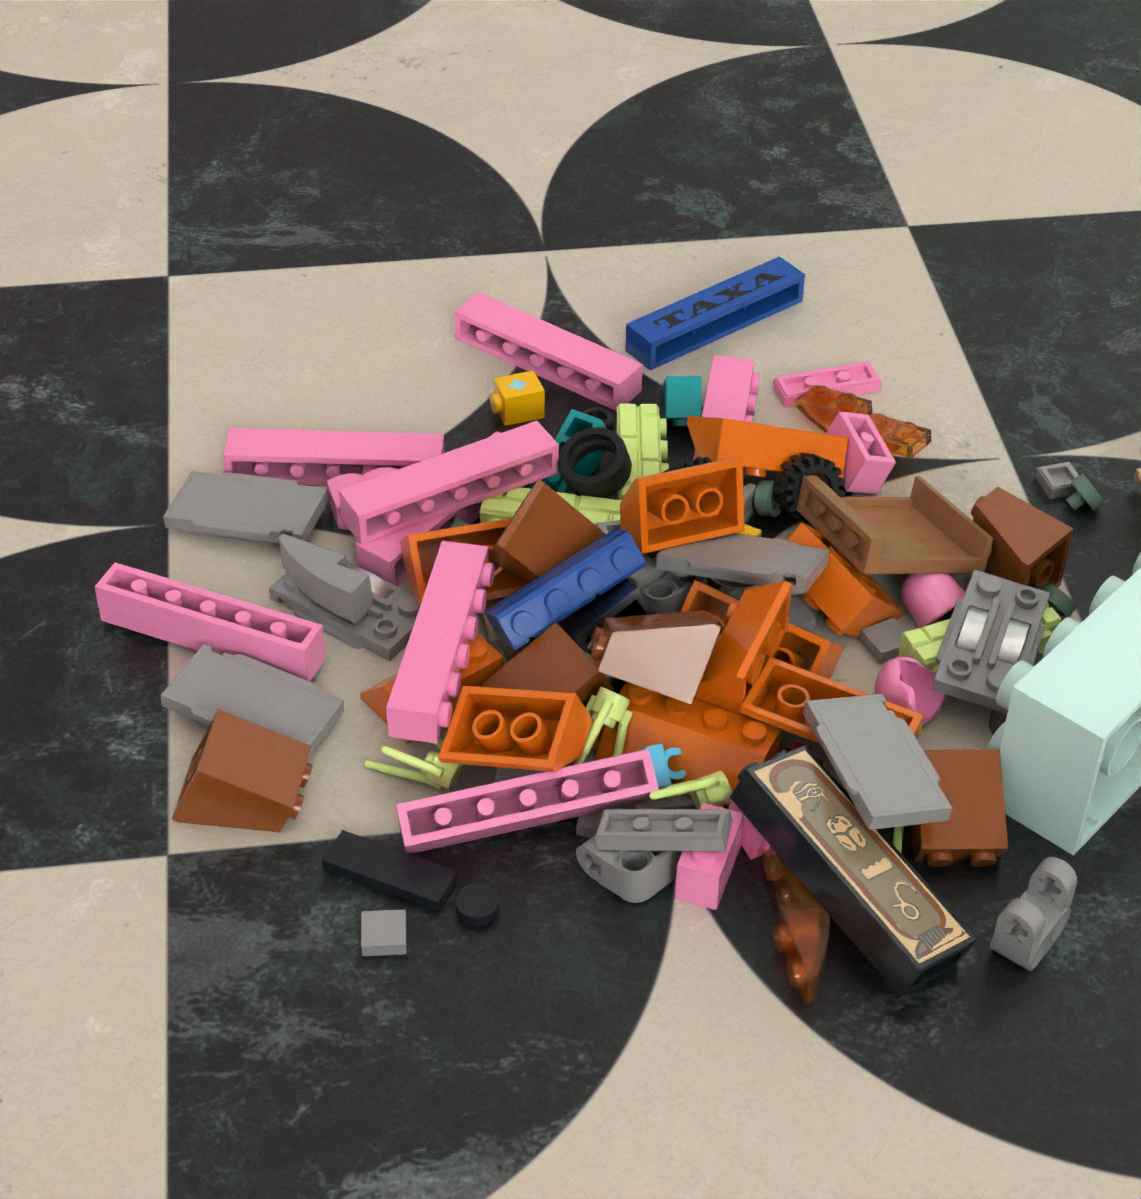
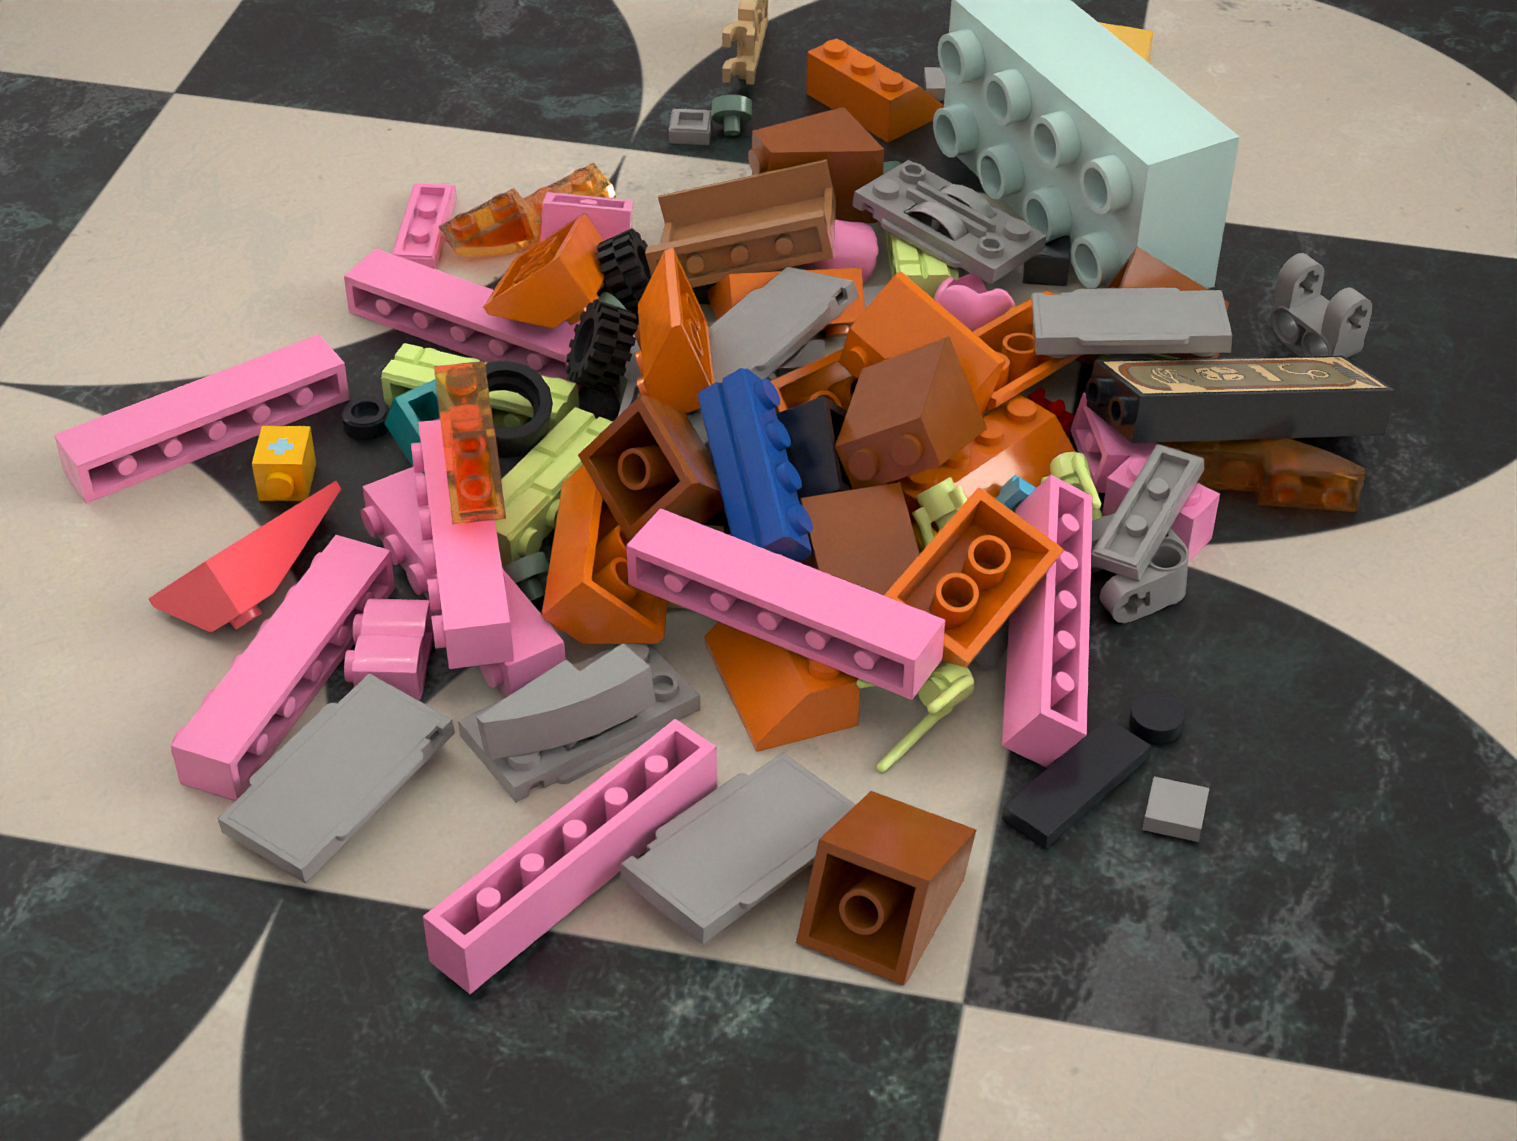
camera: 70 degrees left, 0 degrees up
(405, 412) = (247, 571): none -> coral wedge
(493, 448) = (469, 443): none -> clear orange slope
(682, 399) = (386, 327): teal slope -> none
(714, 313) = (236, 266): blue brick -> none

